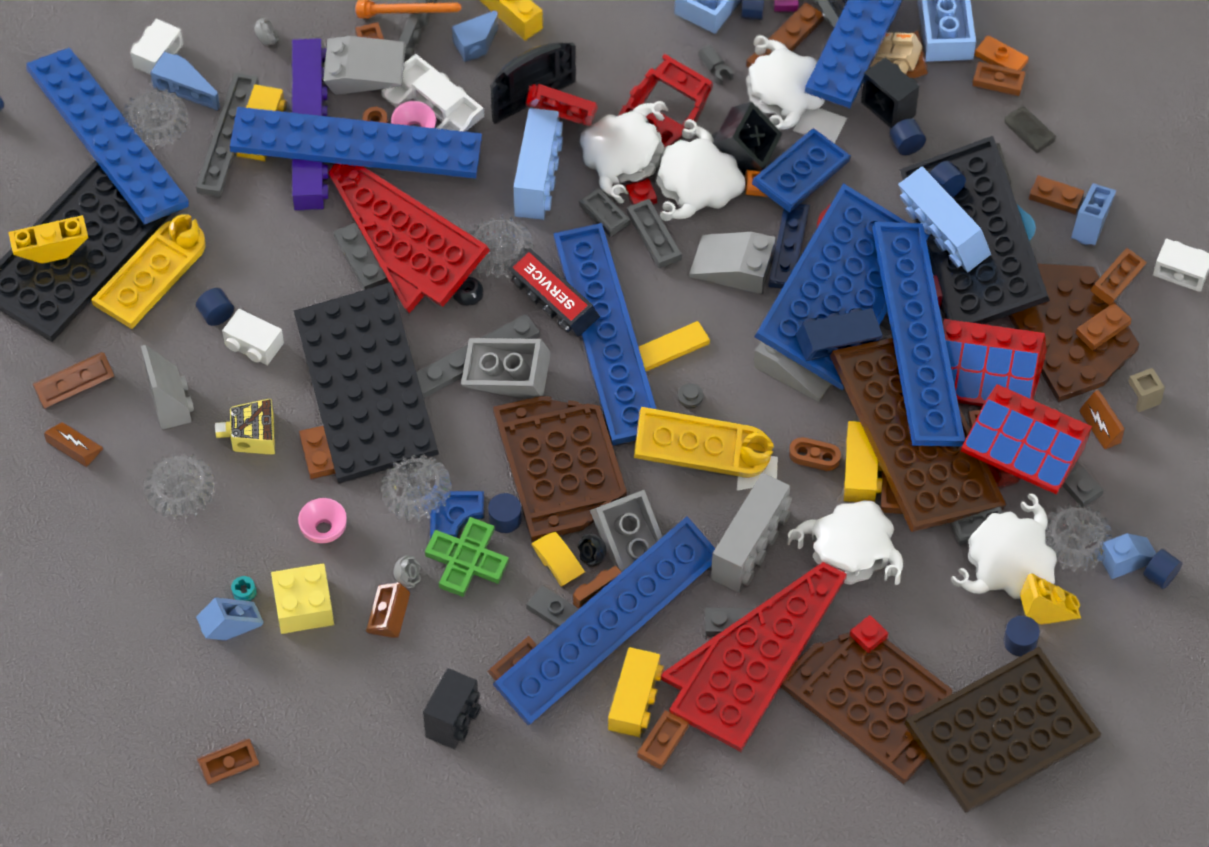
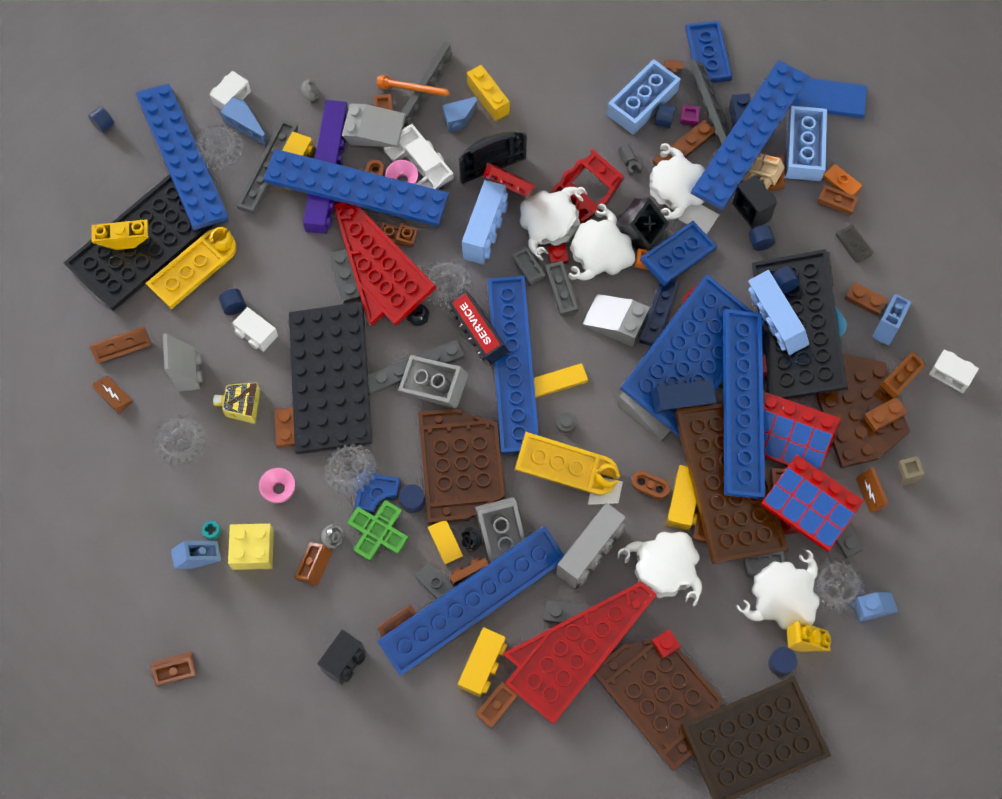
camera: 10 degrees right, 10 degrees up
(431, 194) = (401, 235): none -> dark orange slope
(1162, 568) = (899, 623): dark blue piece -> none

